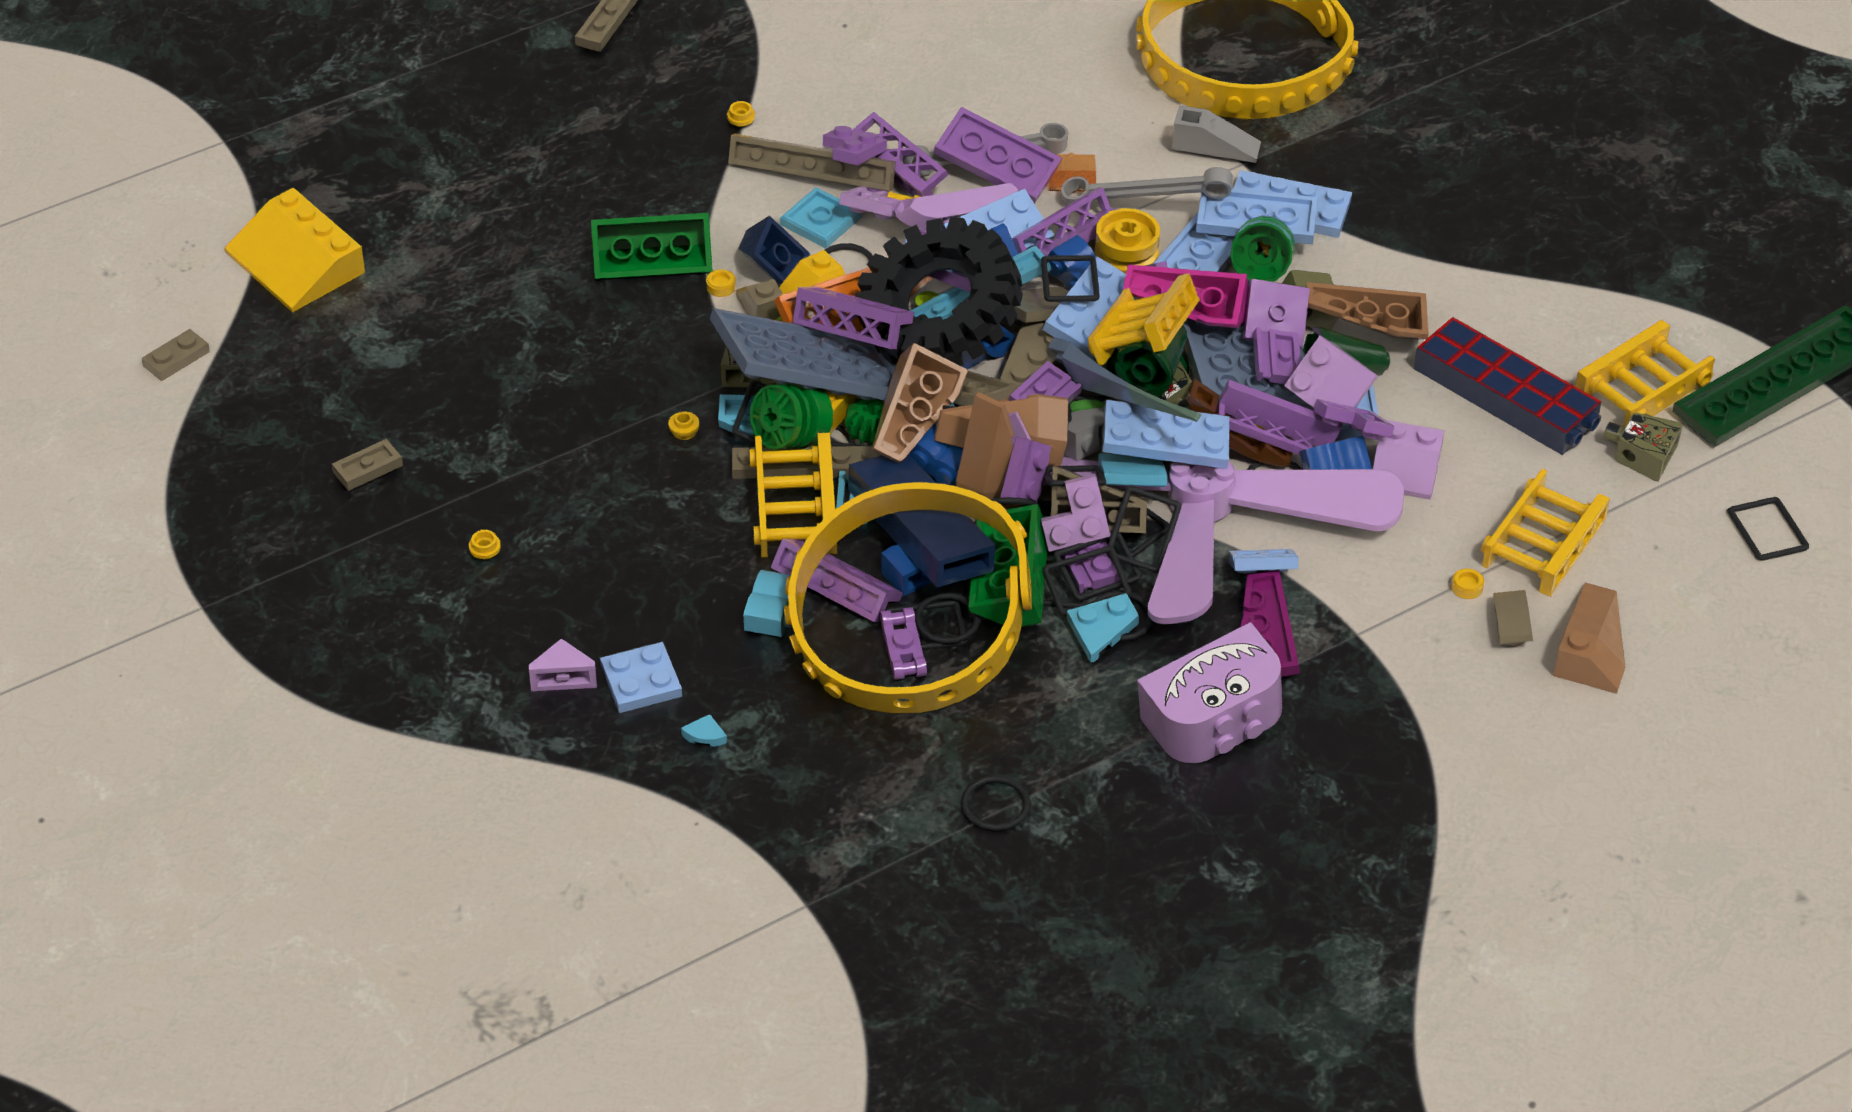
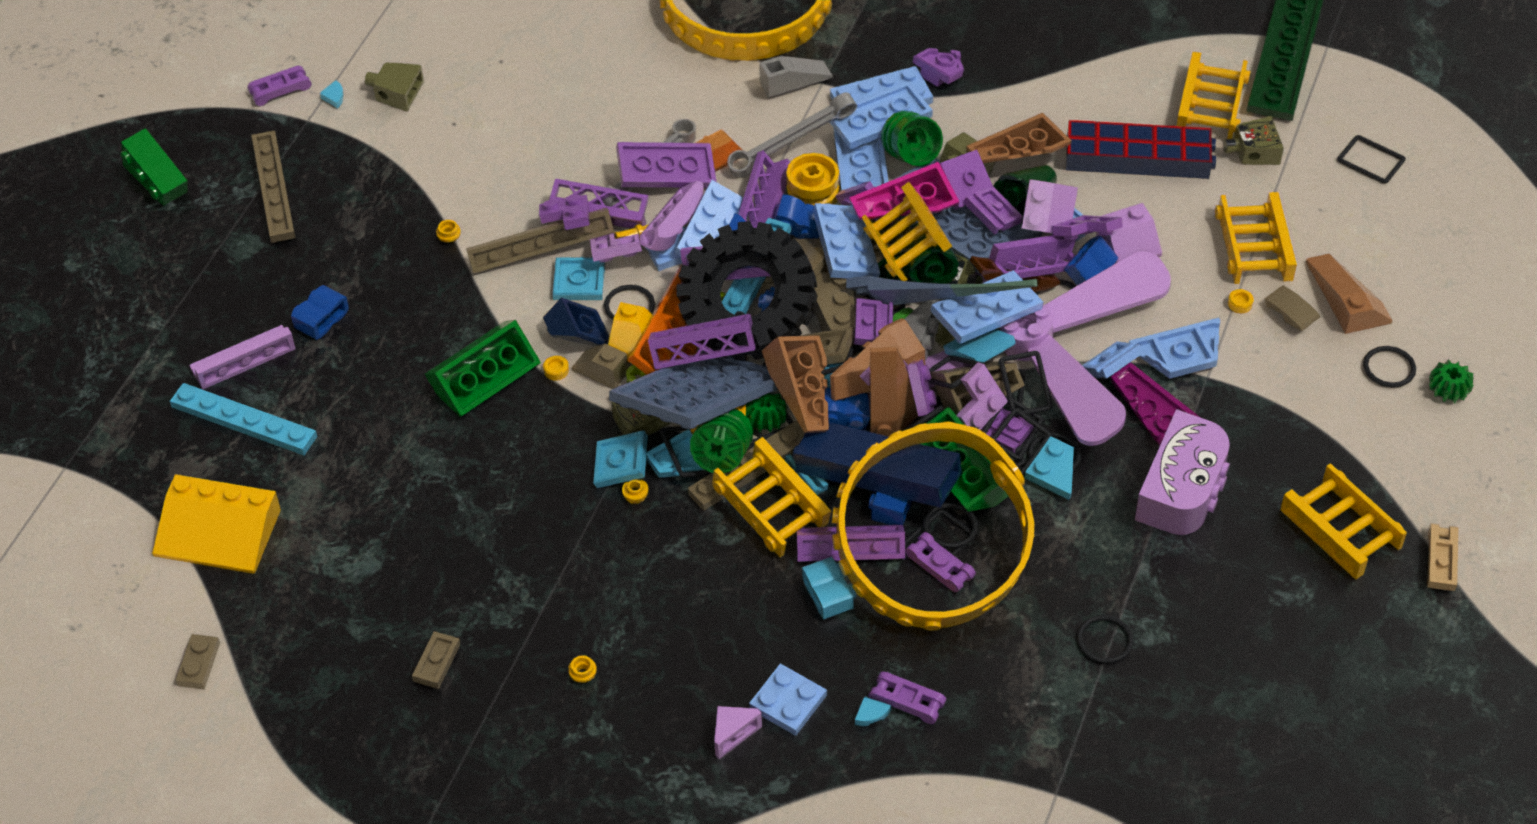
camera: 35 degrees left, 5 degrees up
(406, 180) = (243, 419): none -> medium azure plate
(454, 128) = (243, 356): none -> lavender fence
(555, 123) = (319, 312): none -> blue brick
(694, 388) = (620, 459): none -> medium azure tile
(750, 738) = (908, 697): none -> medium lavender plate
(1092, 259) = (817, 206): black piece -> none
(1321, 850) = (1336, 542): none -> yellow fence
(1353, 591) = (1182, 349): none -> light blue wing
(1376, 204) = (938, 66): none -> medium lavender plate
(1423, 930) = (1442, 557): none -> tan plate
(1566, 753) = (1384, 383): none -> black piece
(1614, 777) = (1451, 381): none -> green gear

